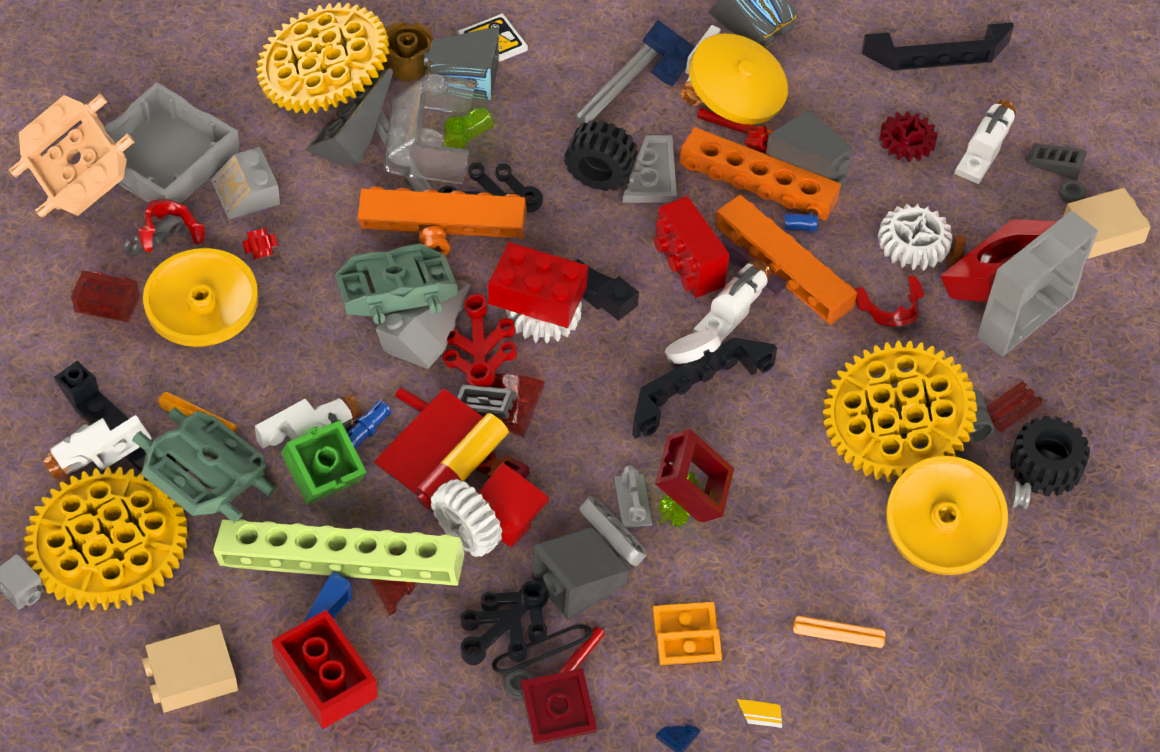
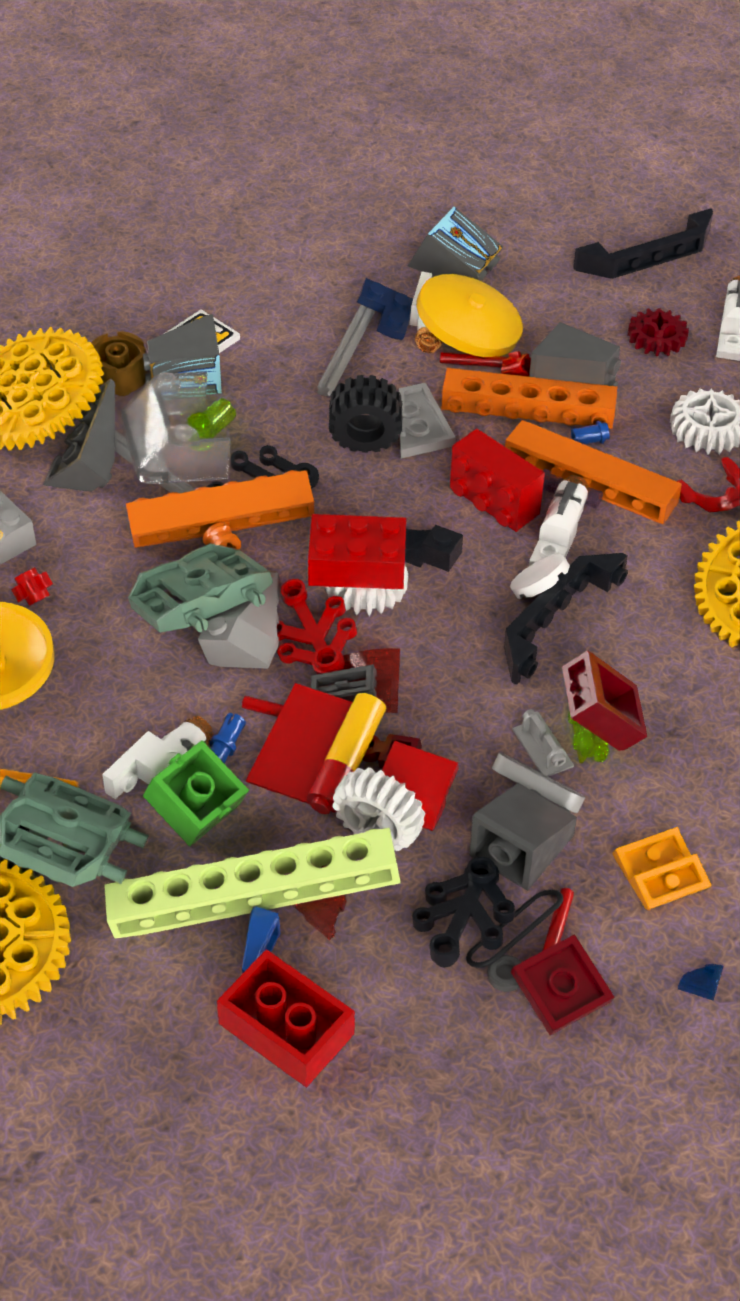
camera: 15 degrees left, 5 degrees down
(190, 668) = (127, 1062): tan brick -> none

